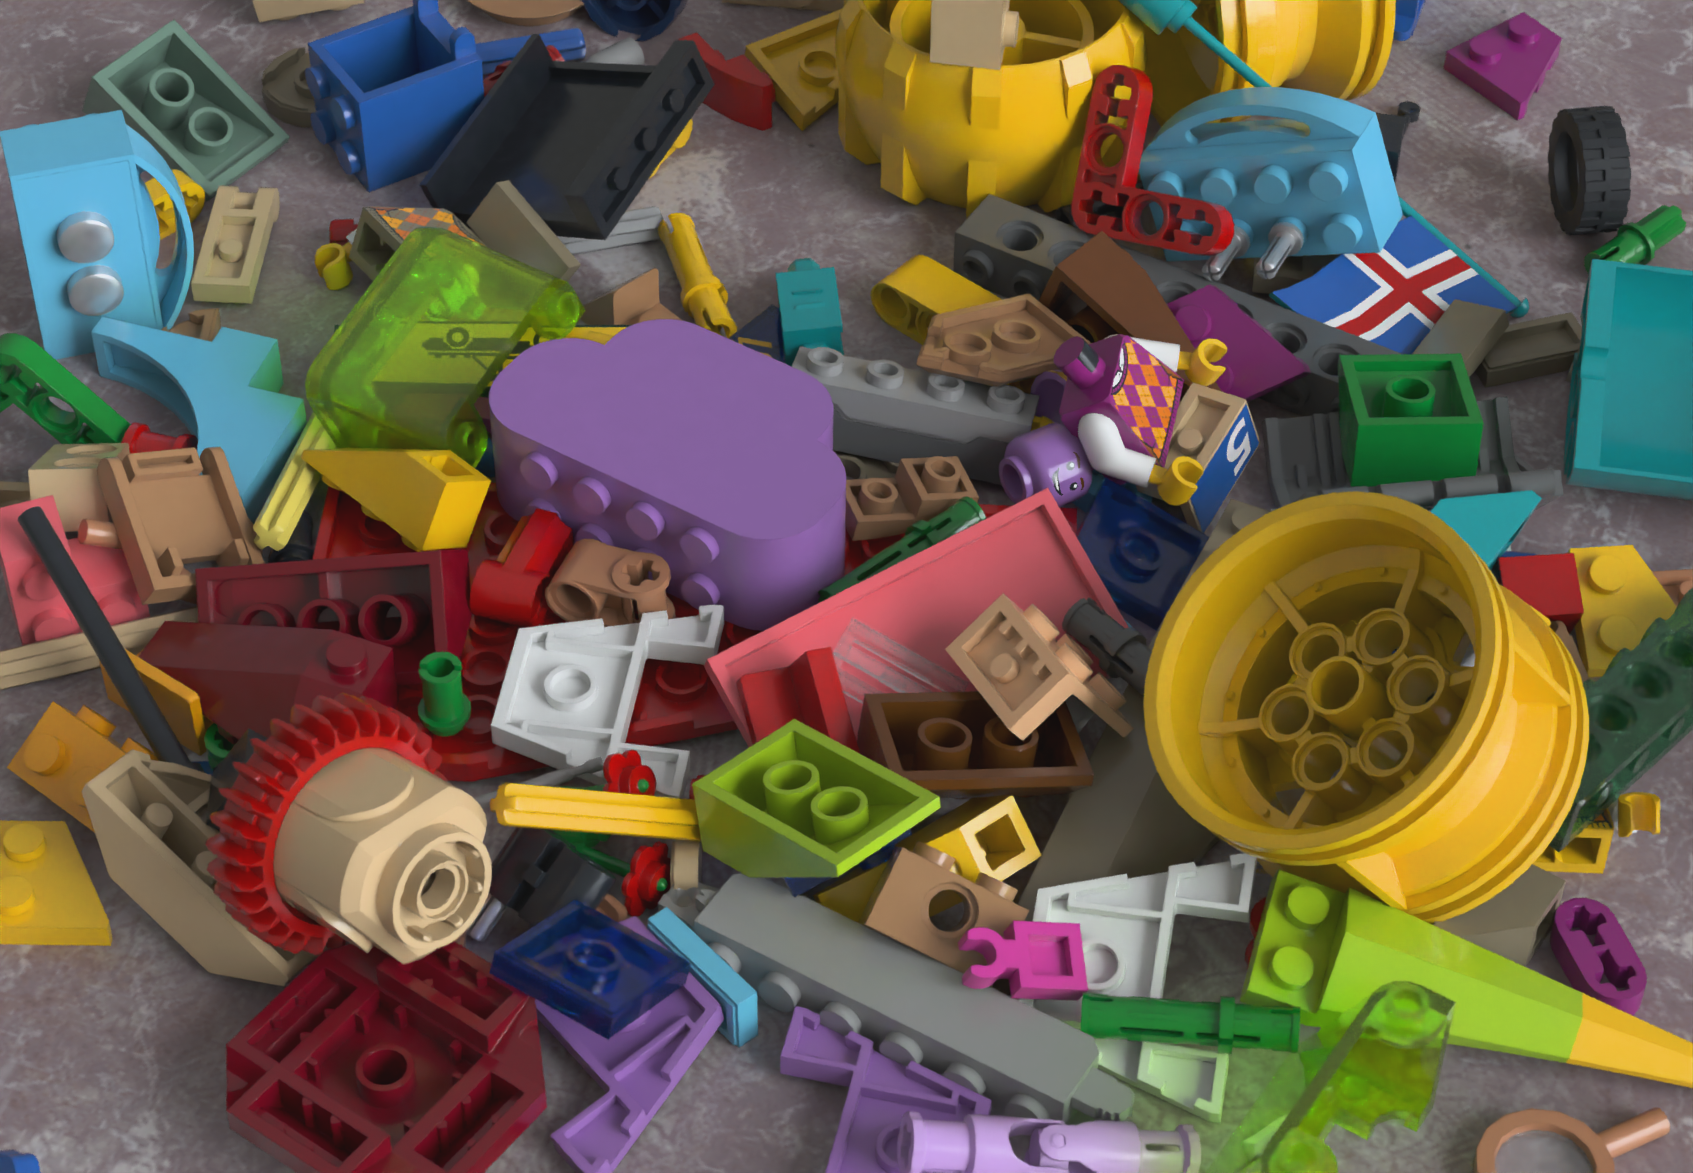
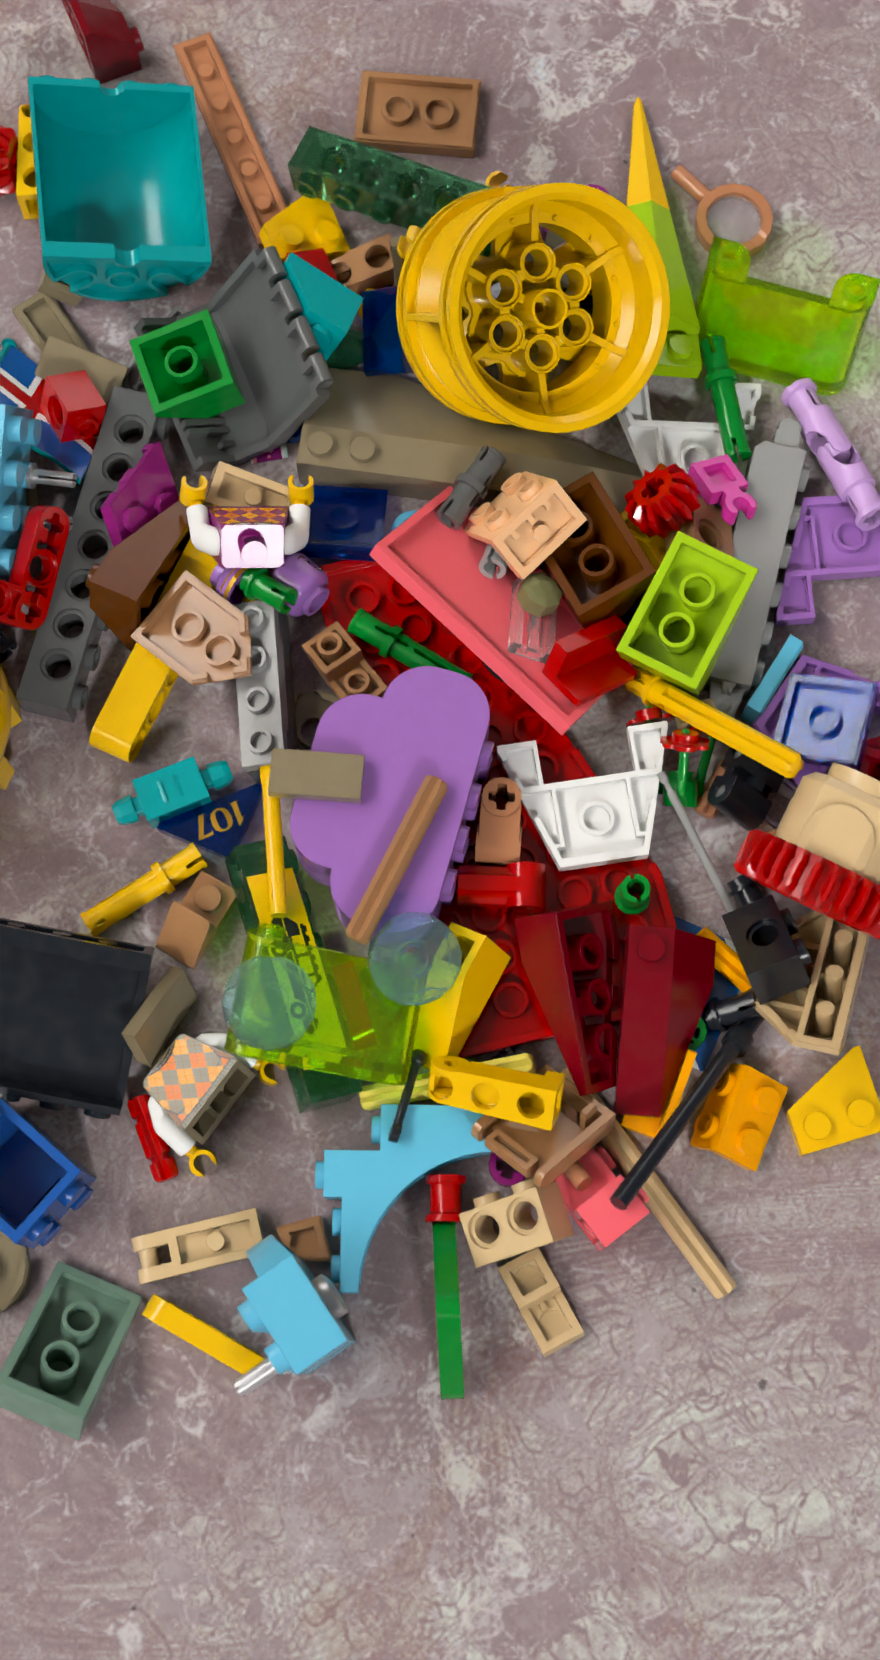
camera: 105 degrees left, 30 degrees up
(231, 474) = (497, 1091): none -> yellow leg
(338, 435) = (418, 1060): none -> black hinge
(448, 396) = (414, 958): none -> clear light blue tile
(461, 257) = (269, 1002): none -> clear light blue tile
(583, 392) = (396, 860): none -> medium nougat axle
(730, 346) = (316, 775): none -> dark tan tile
(924, 672) = (539, 594): none -> olive tile
(1017, 846) = (662, 500): none -> red gear
(1030, 409) = (259, 585): none -> green pin
(1389, 308) = (72, 406): none -> red brick

